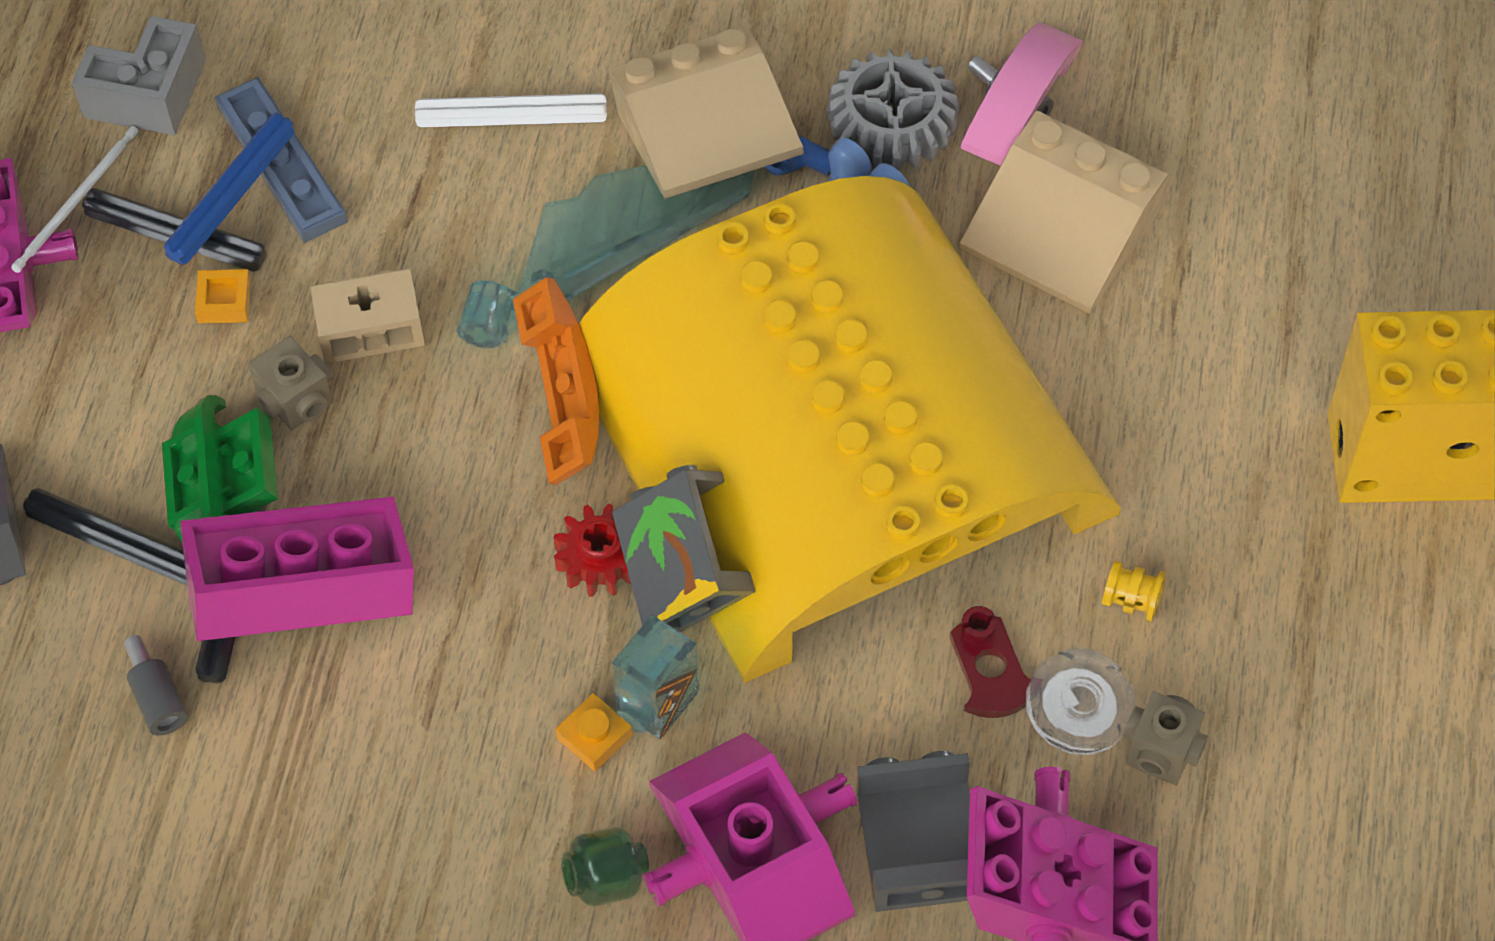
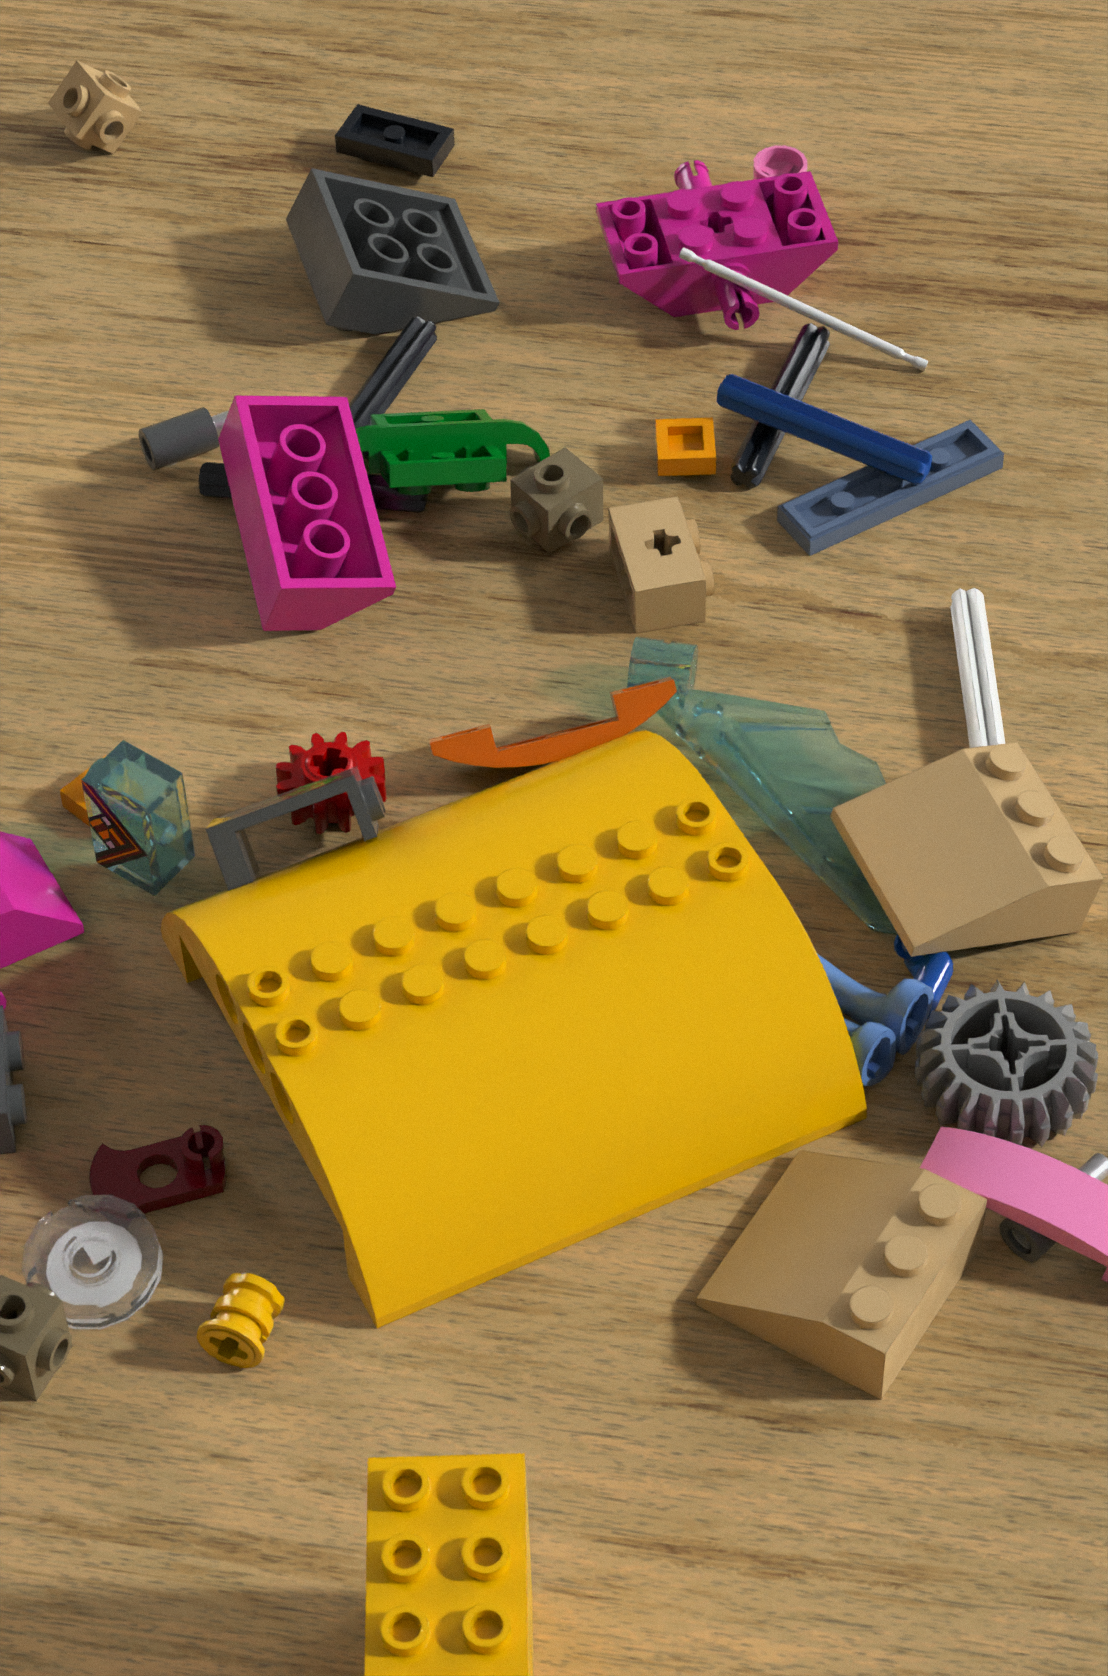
camera: 90 degrees right, 10 degrees down
(145, 86) = (983, 361): light grey panel -> none

